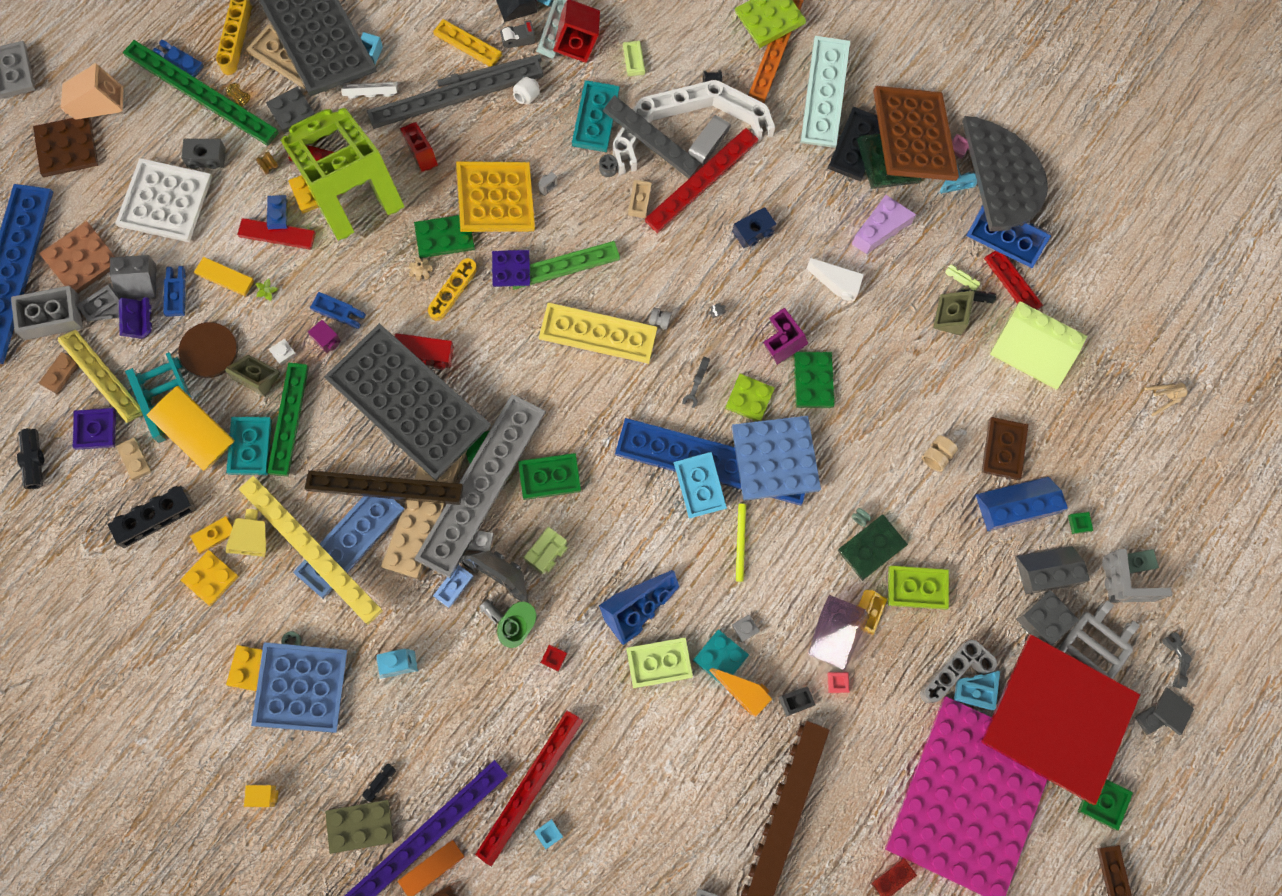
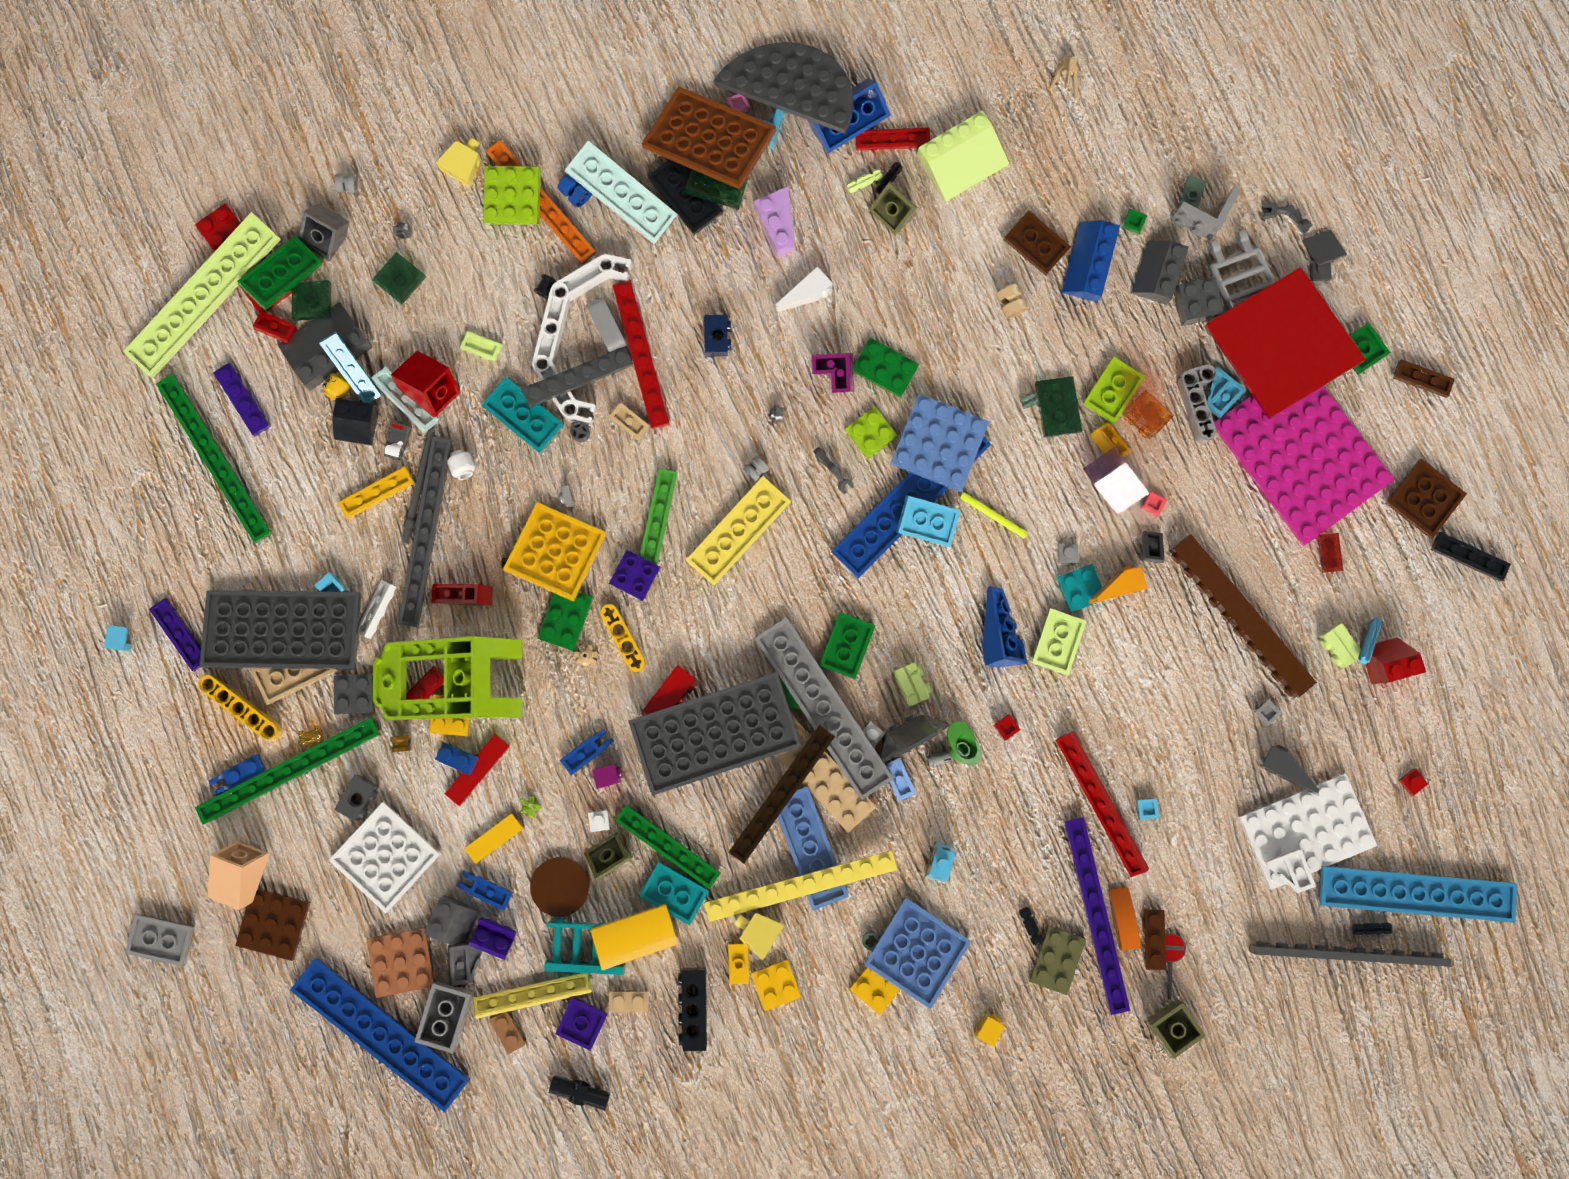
camera: 60 degrees left, 10 degrees up
(802, 59) = (577, 193): none -> blue wheel
(914, 627) = (1147, 415): none -> clear orange brick

